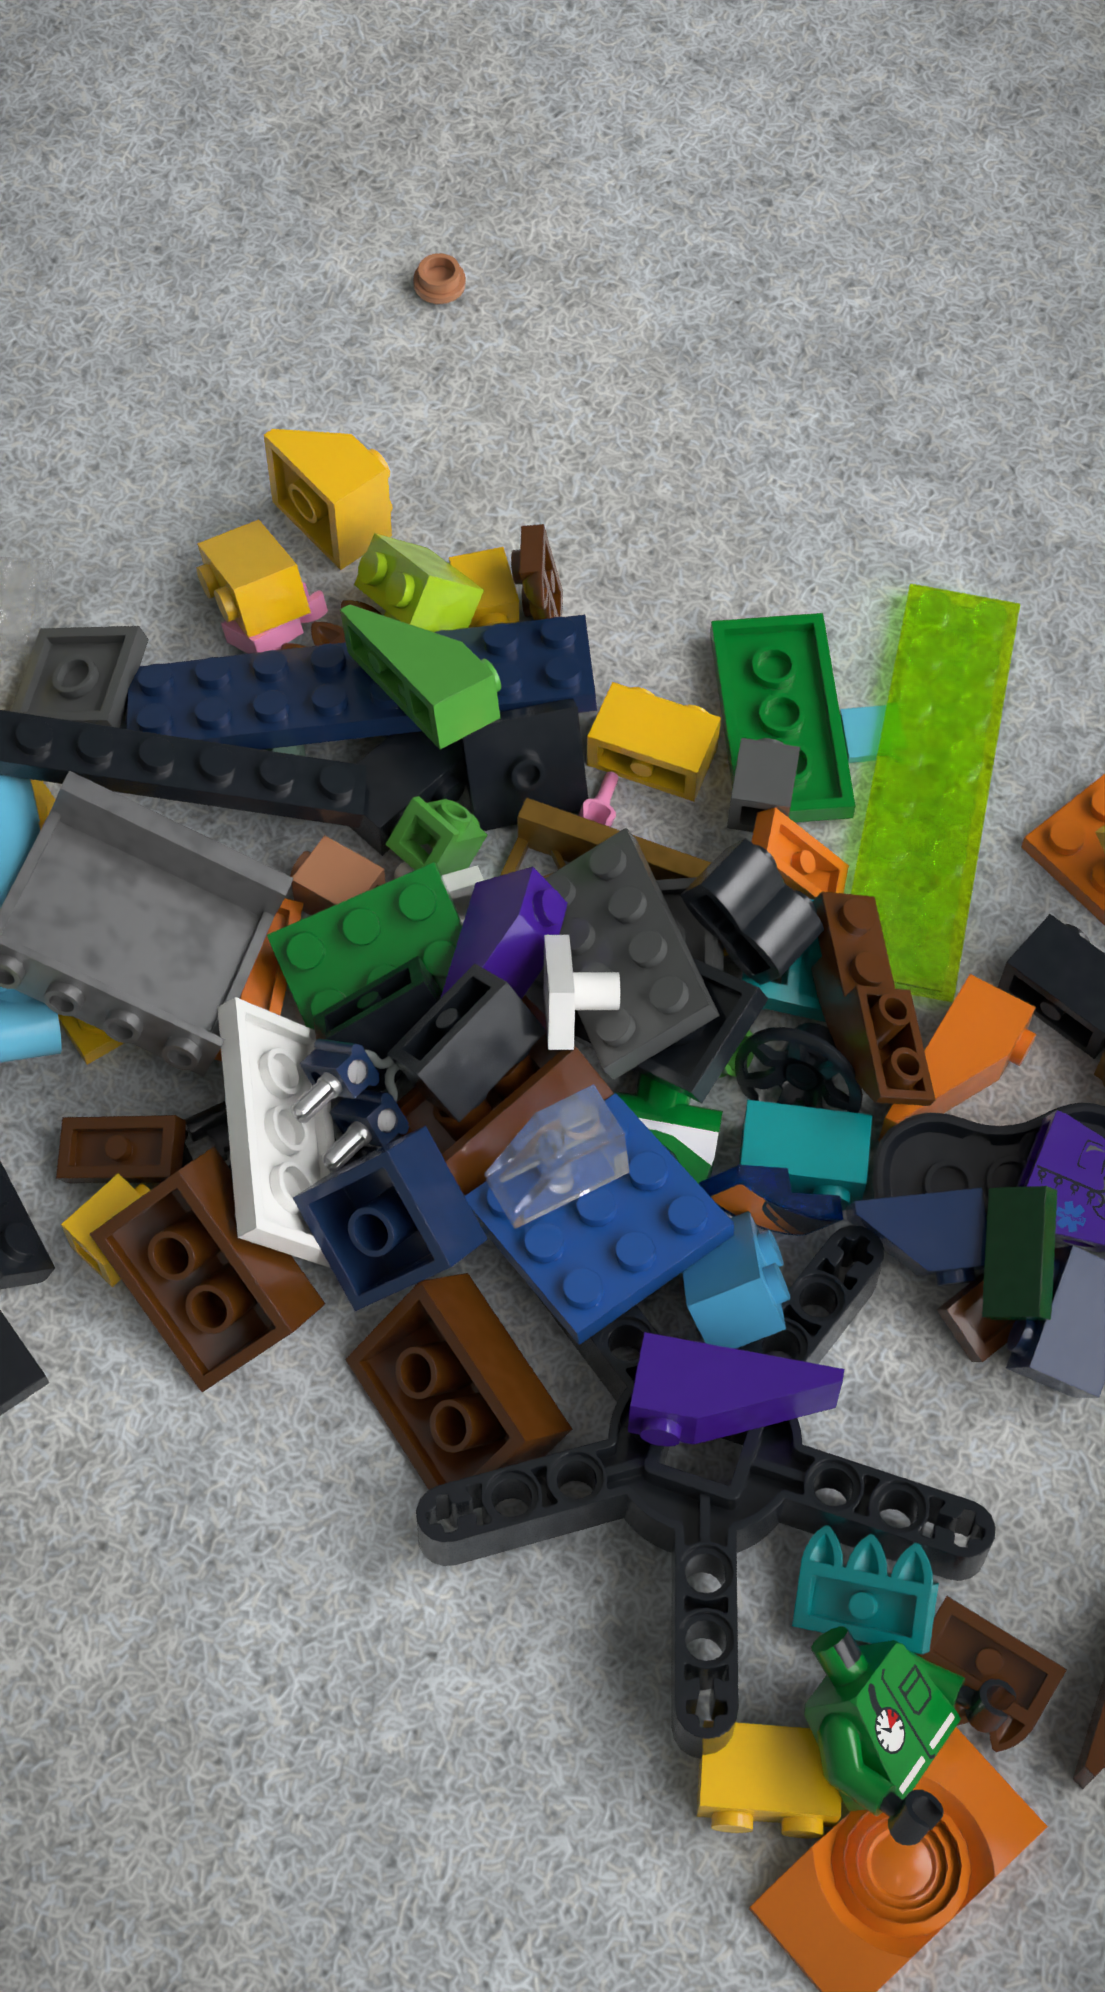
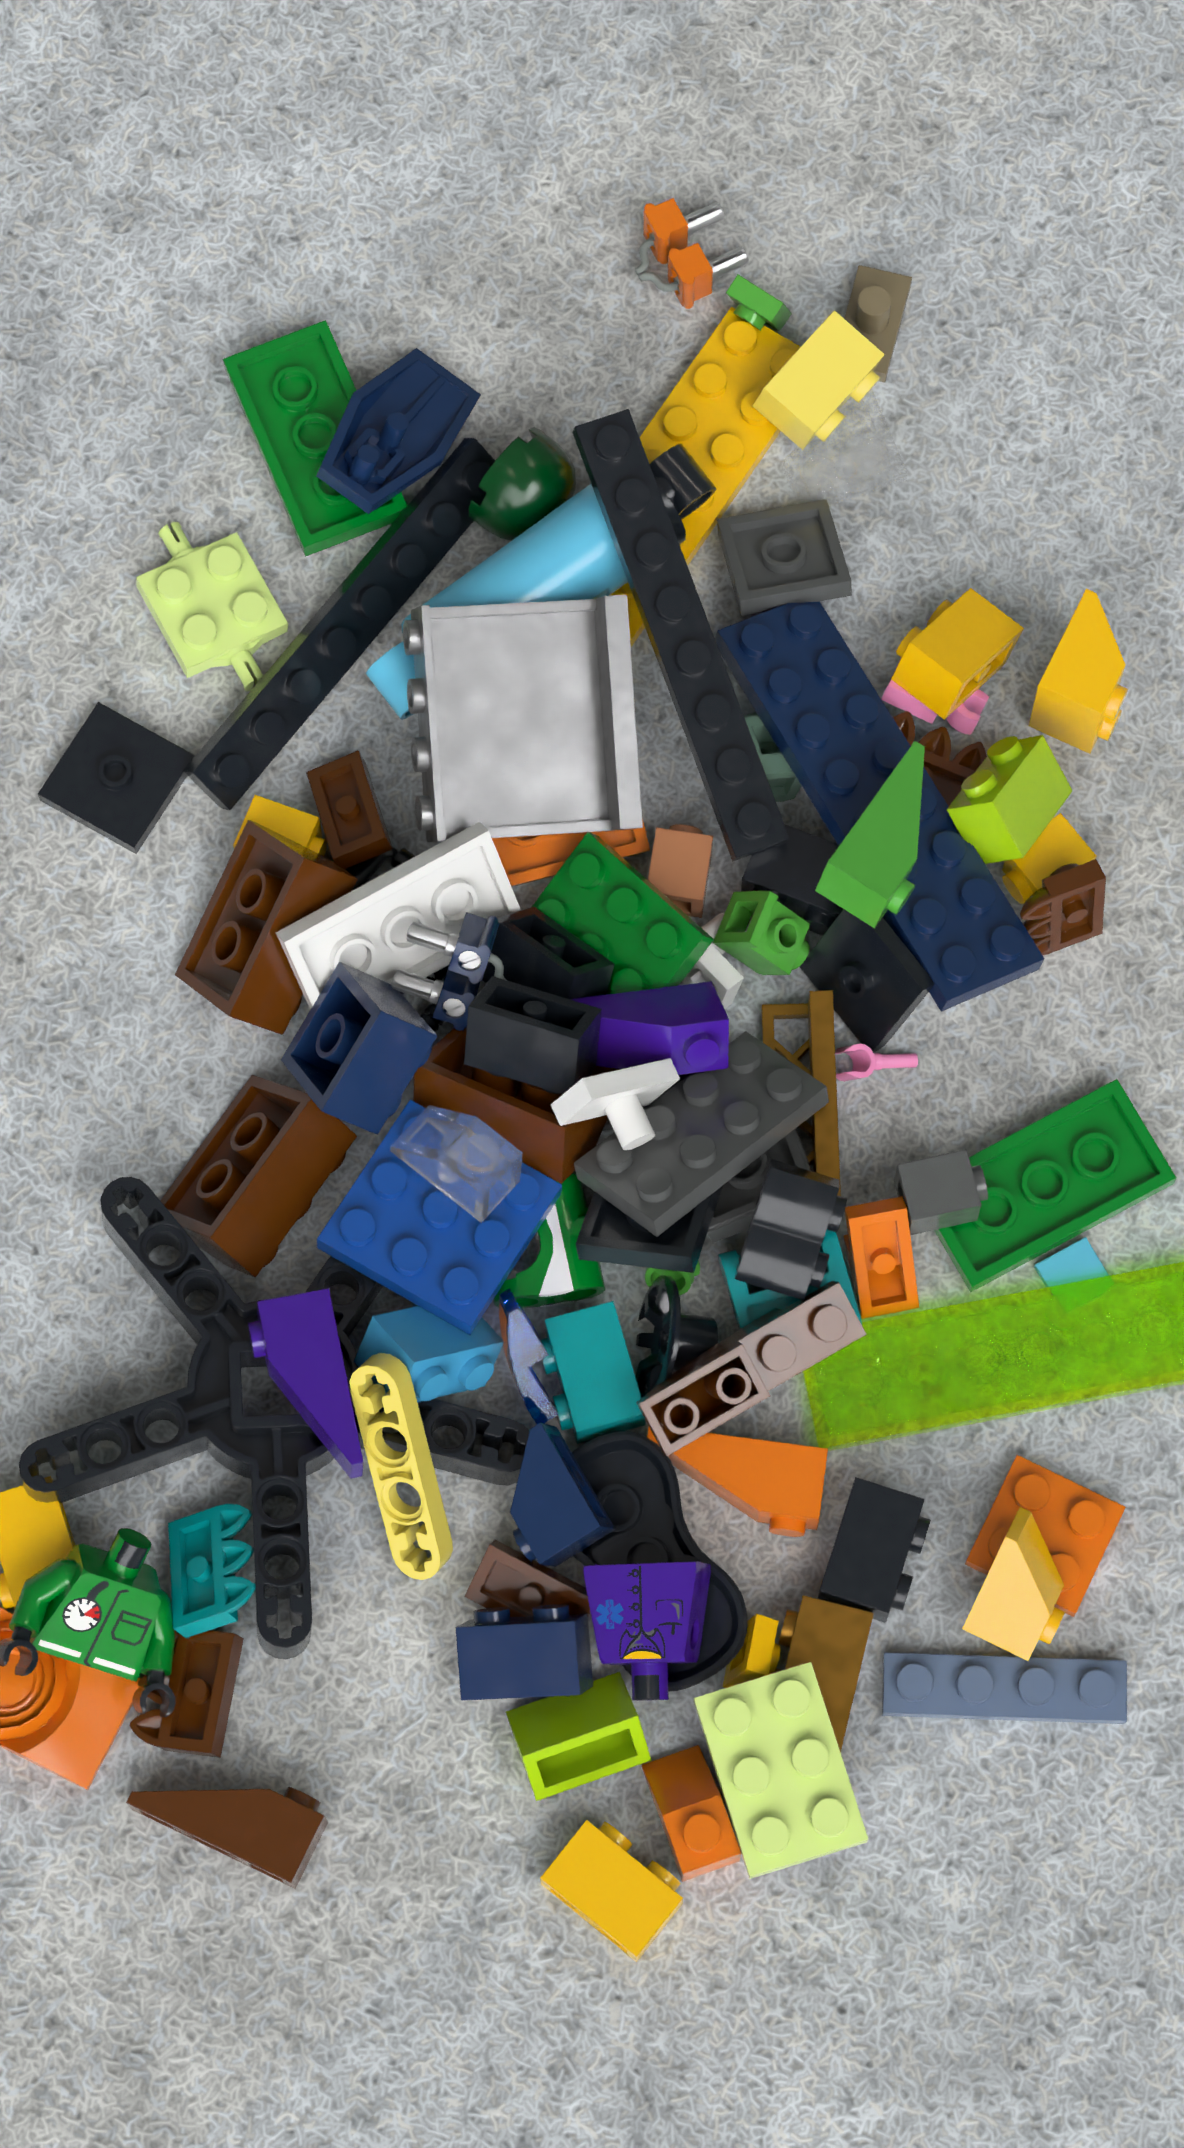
camera: 70 degrees right, 10 degrees up
(653, 740) = (961, 1079): yellow brick -> none
(844, 1351) = (392, 1466): none -> light yellow beam
(1019, 1253) = (549, 1579): dark green tile -> none

